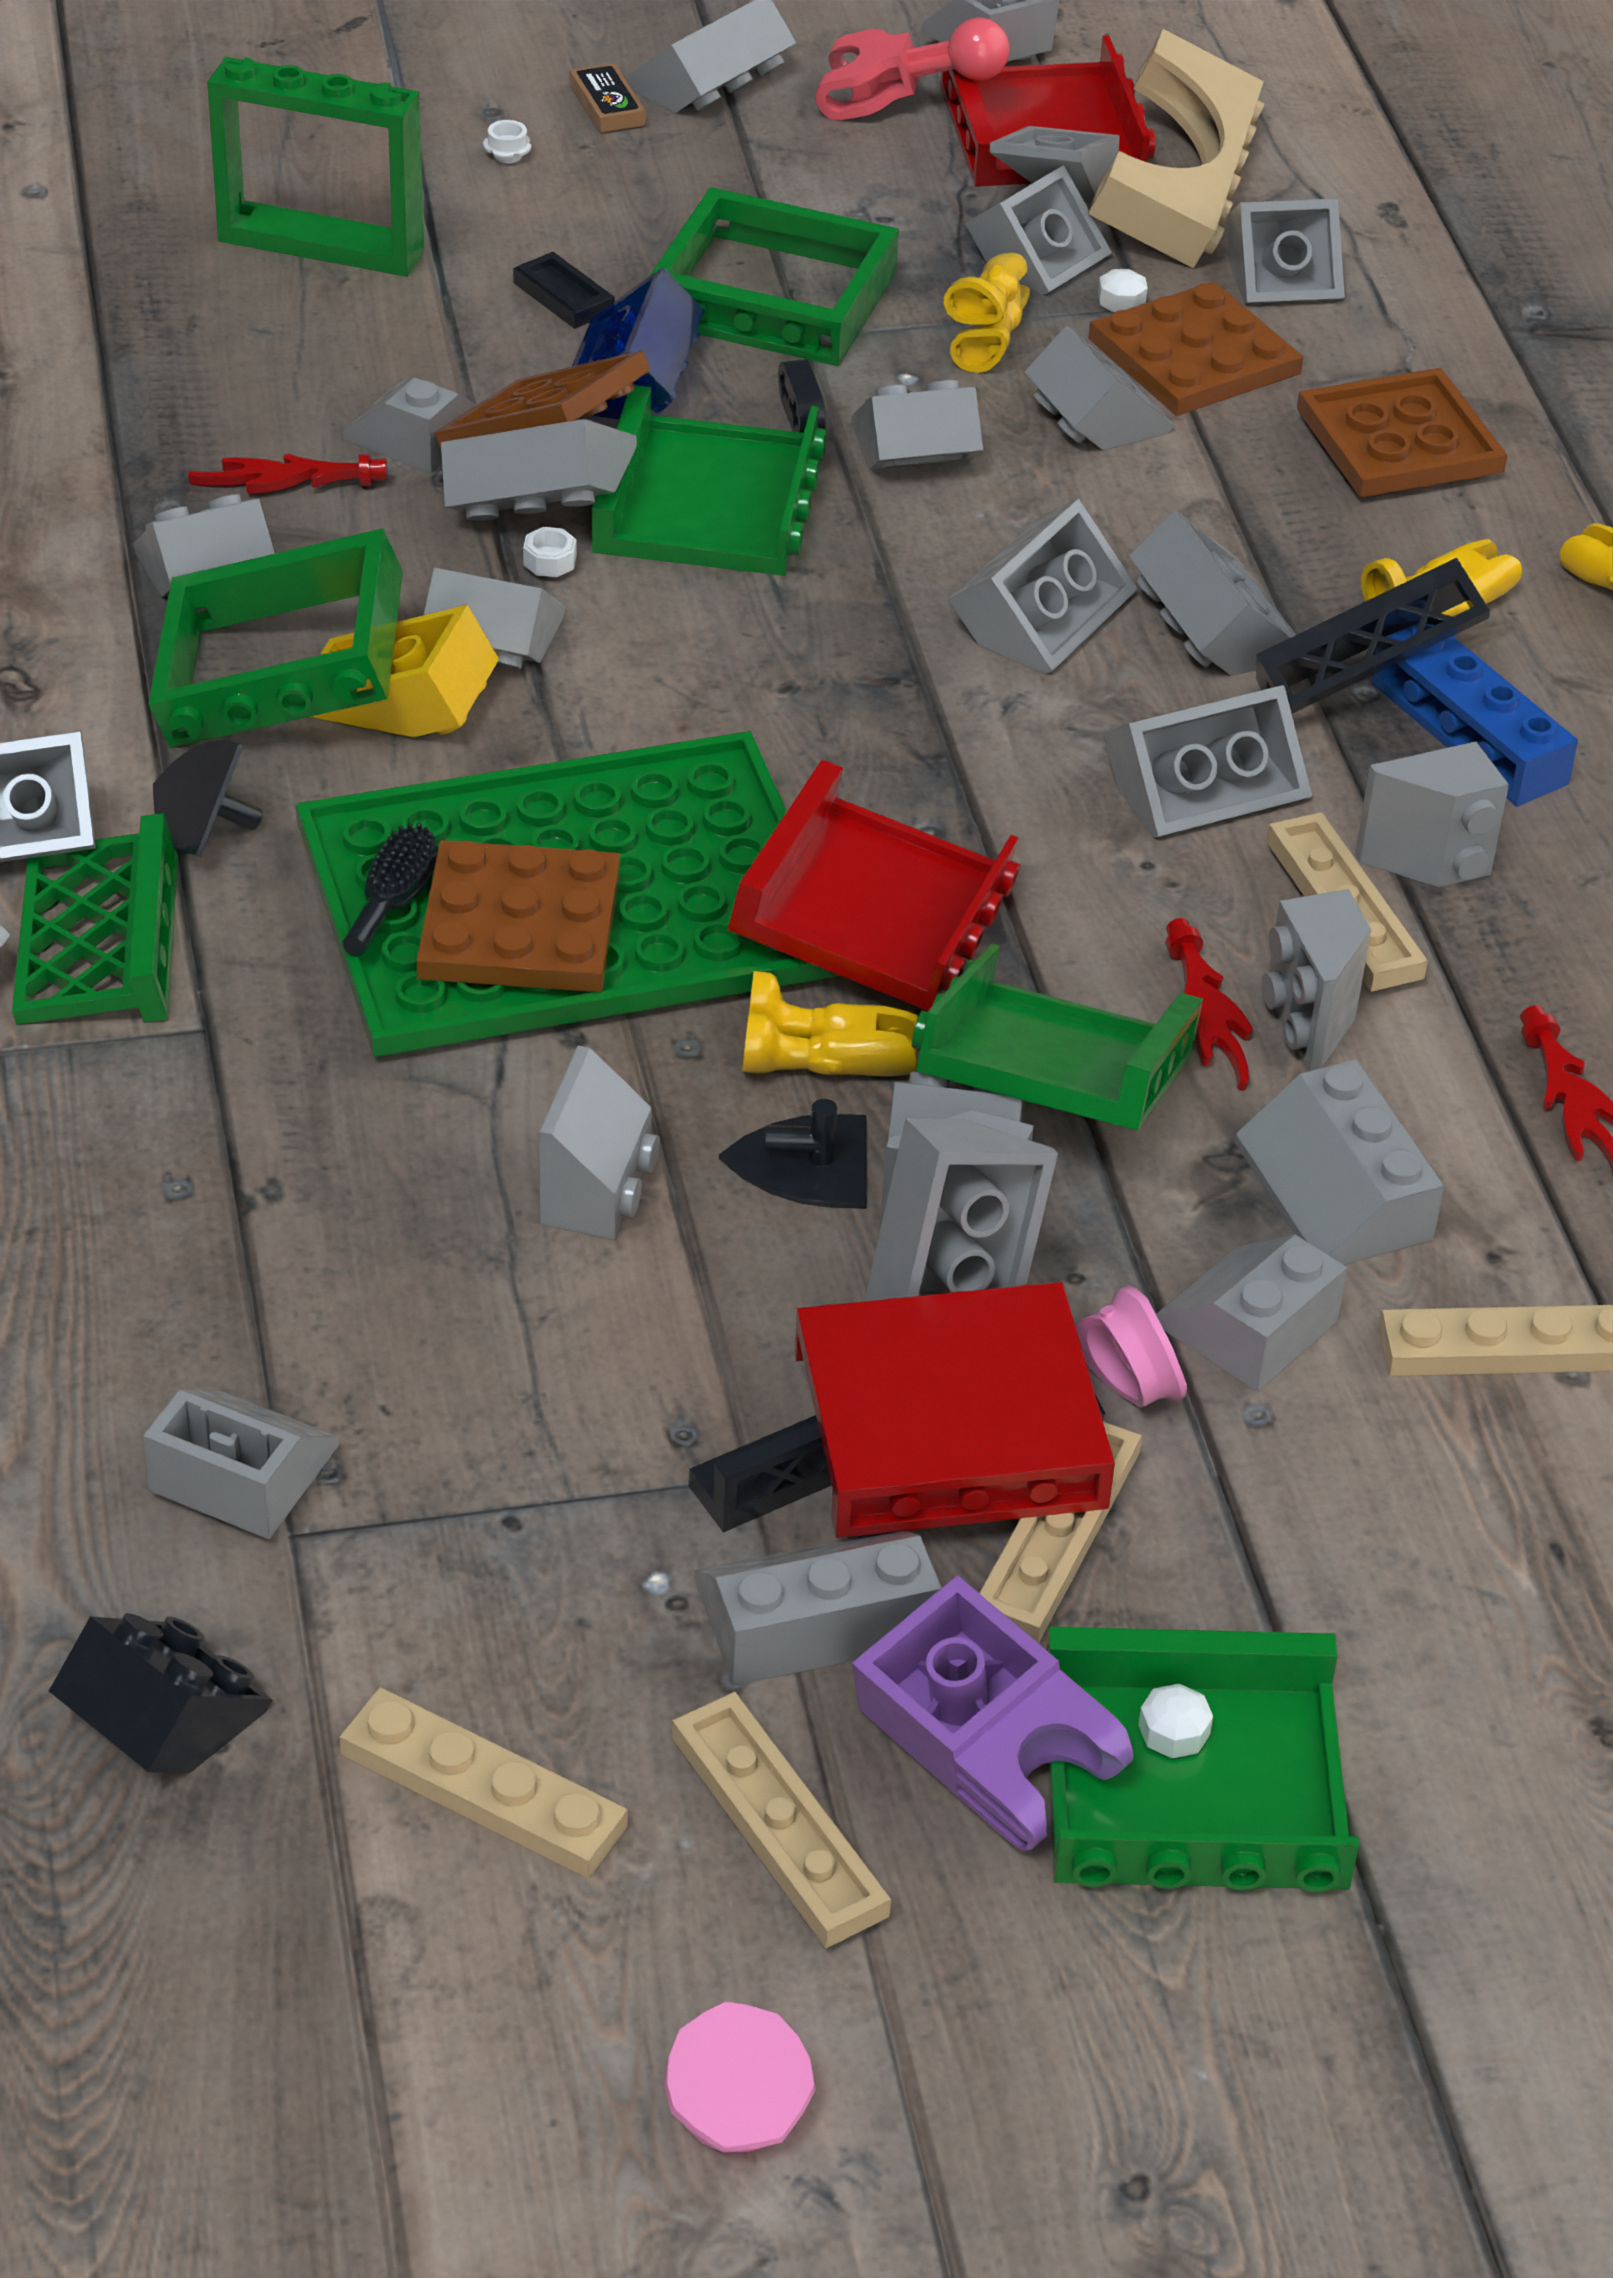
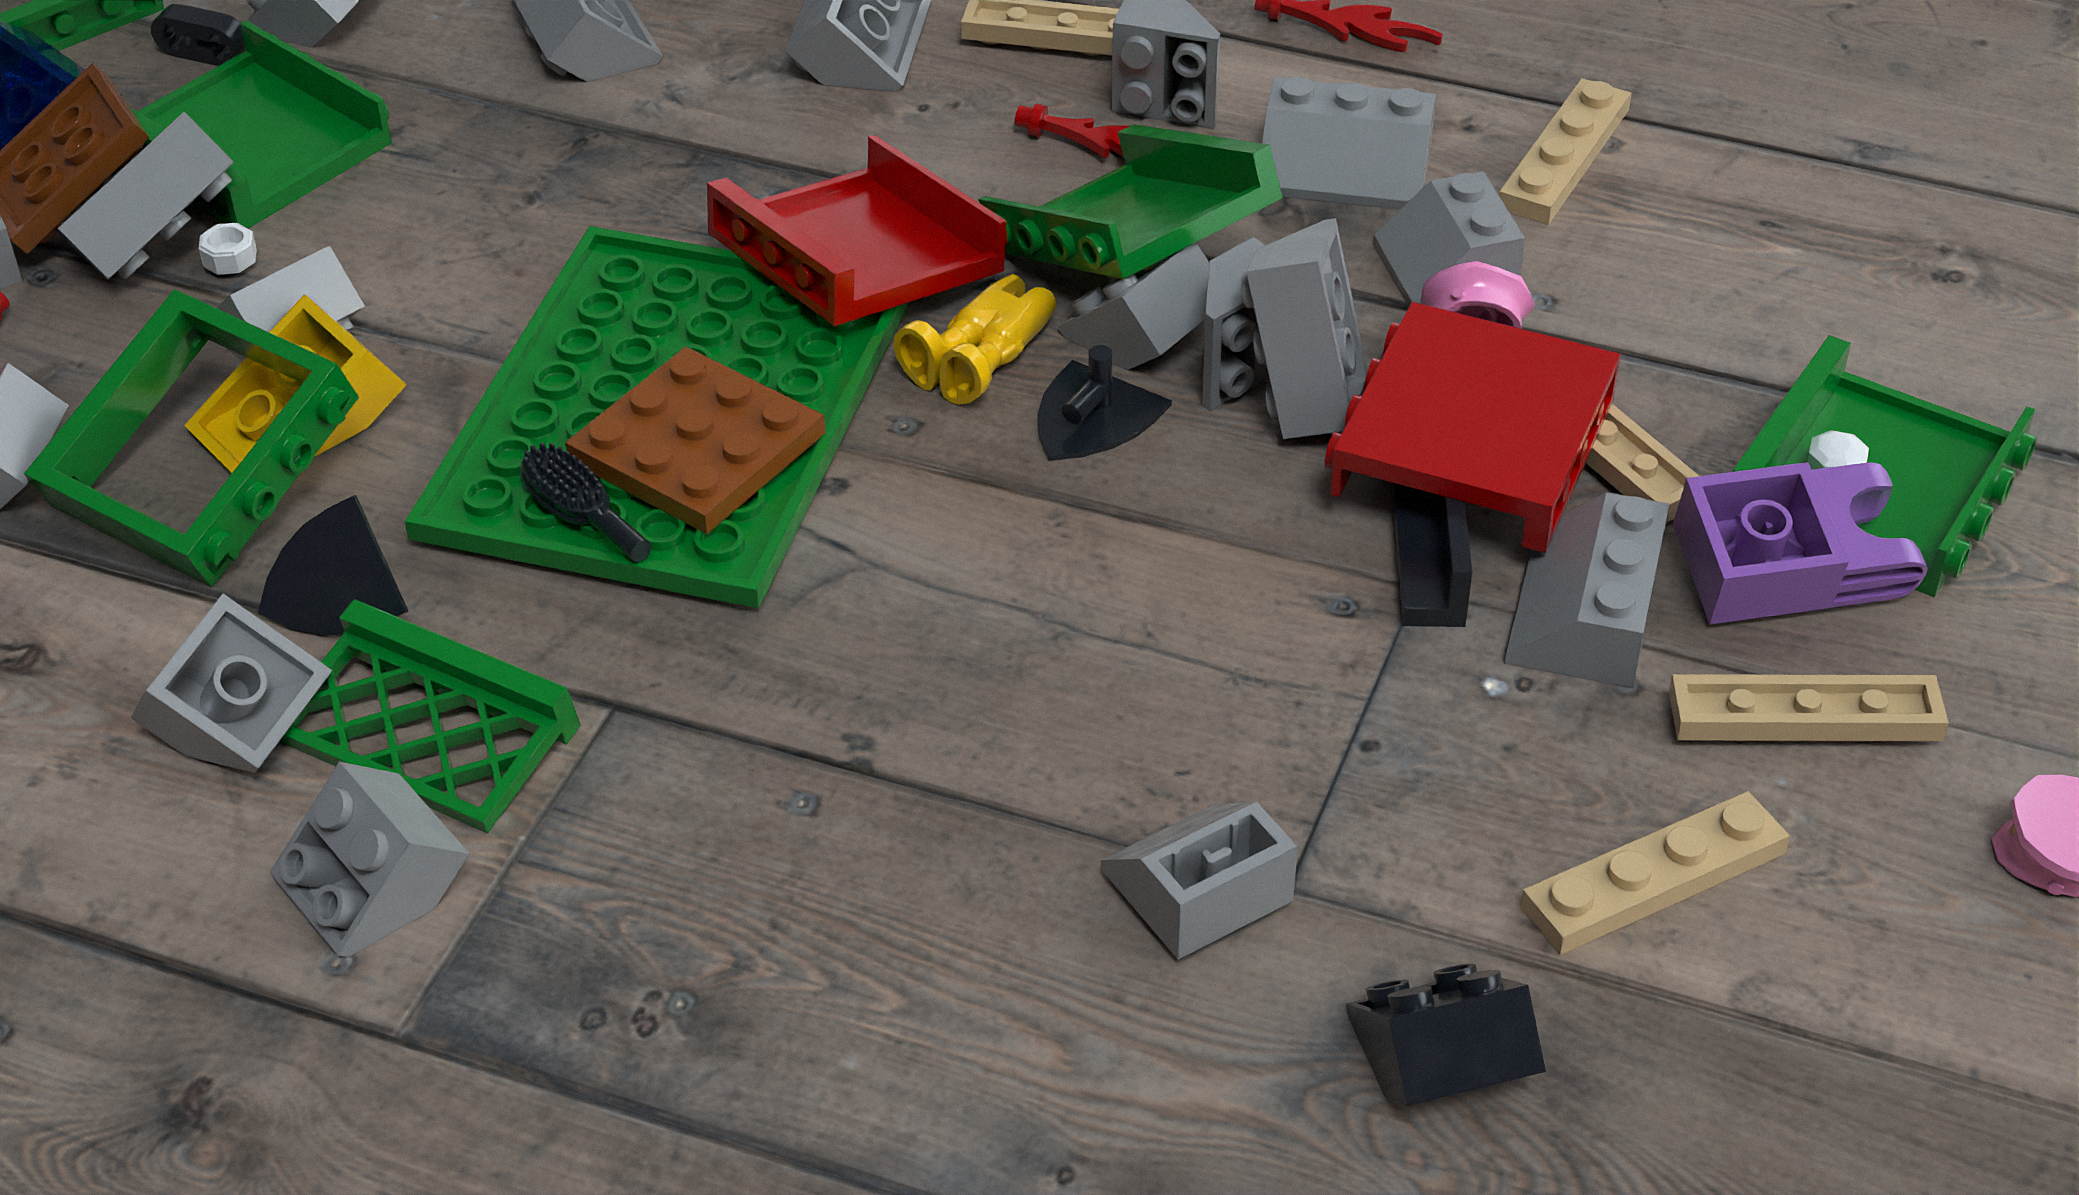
camera: 55 degrees left, 0 degrees up
(594, 1149) = (1017, 513): light grey slope -> none

